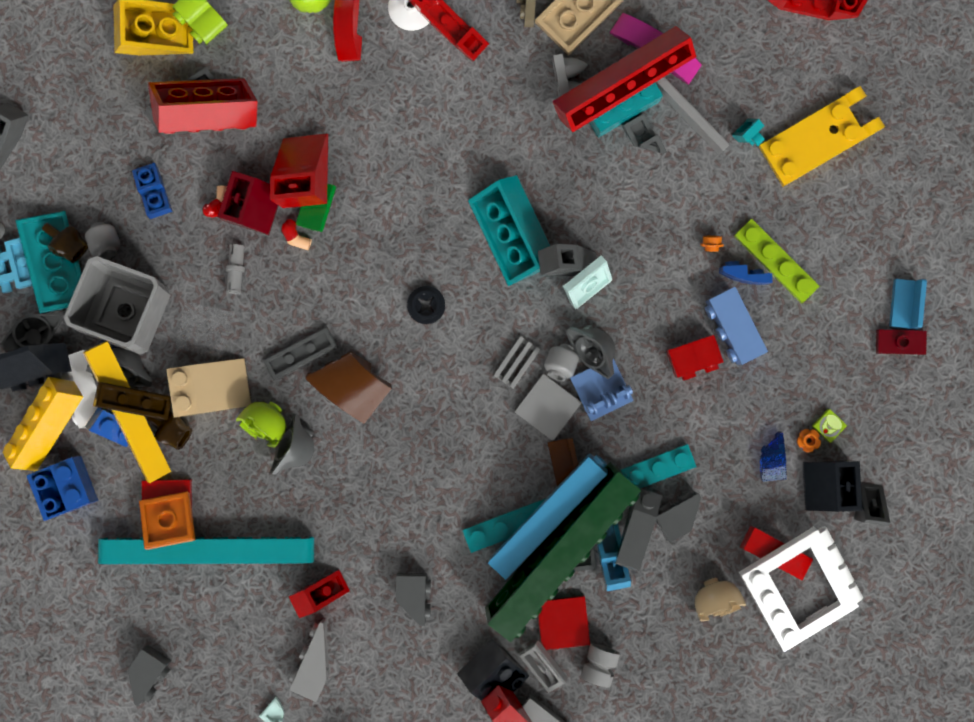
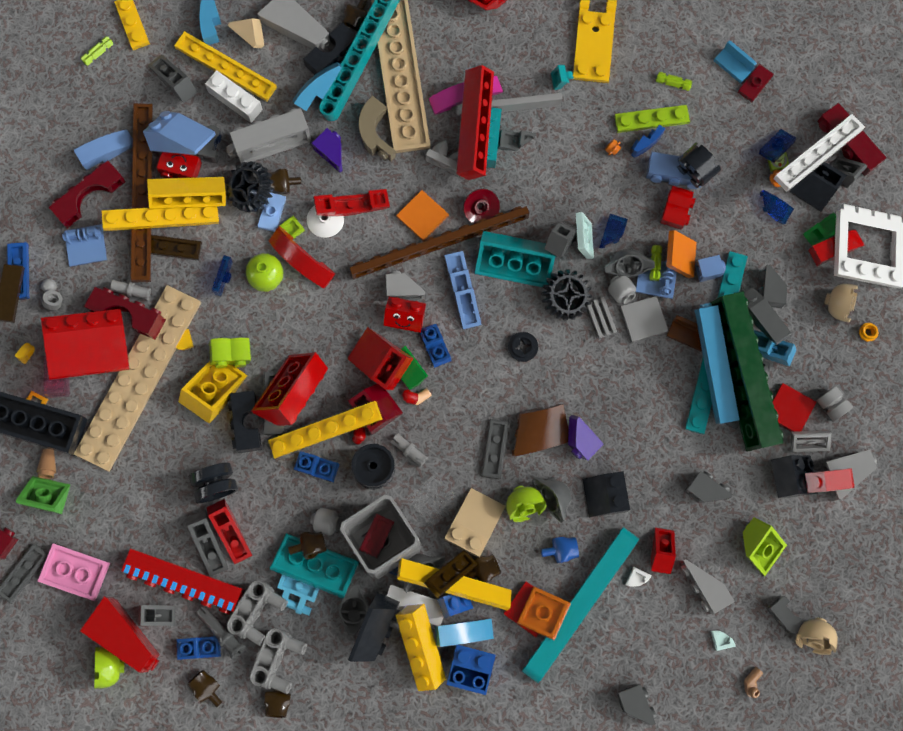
camera: 55 degrees left, 10 degrees down
(25, 150) = (228, 531): none -> red slope
(55, 101) = (213, 482): none -> black wheel
(91, 455) = (463, 632): none -> dark azure slope
(120, 300) = (376, 536): none -> dark red plate
(125, 96) = (245, 439): none -> black arch
(177, 237) = (377, 477): none -> black wheel
(189, 171) = (325, 429): none -> yellow plate
(248, 493) = (563, 549): none -> blue piece
(274, 587) = (637, 577): none -> white tile
(333, 498) = (606, 494): none -> black slope
(361, 216) = (435, 345): none -> blue slope
(367, 160) = (404, 314): none -> red brick
(370, 434) = (582, 439): none -> slope
(395, 136) = (403, 287): none -> light grey slope
(395, 689) = (762, 545): none -> lime slope
(440, 200) = (462, 290): none -> medium blue slope
(464, 134) = (433, 244): none -> reddish brown plate
(489, 101) = (422, 215): none -> orange tile
(502, 316) = (582, 295): none -> black gear
(532, 158) = (489, 209): none -> dark red dish
(619, 375) = (656, 251): none -> lime axle
(620, 308) = (614, 230): none -> clear blue slope
(644, 396) = (681, 254): none -> orange tile
(653, 437) = (710, 268): none -> medium blue brick
(712, 654) = (874, 332): none -> light orange plate
(752, 346) = (698, 164): none -> black brick
(782, 525) = (822, 230): none -> green slope
(837, 254) = (674, 81): none -> lime axle
(844, 414) = (777, 145): none -> clear blue plate
(864, 464) = (819, 152): none -> white plate
(912, 486) = (859, 148): none -> dark red brick

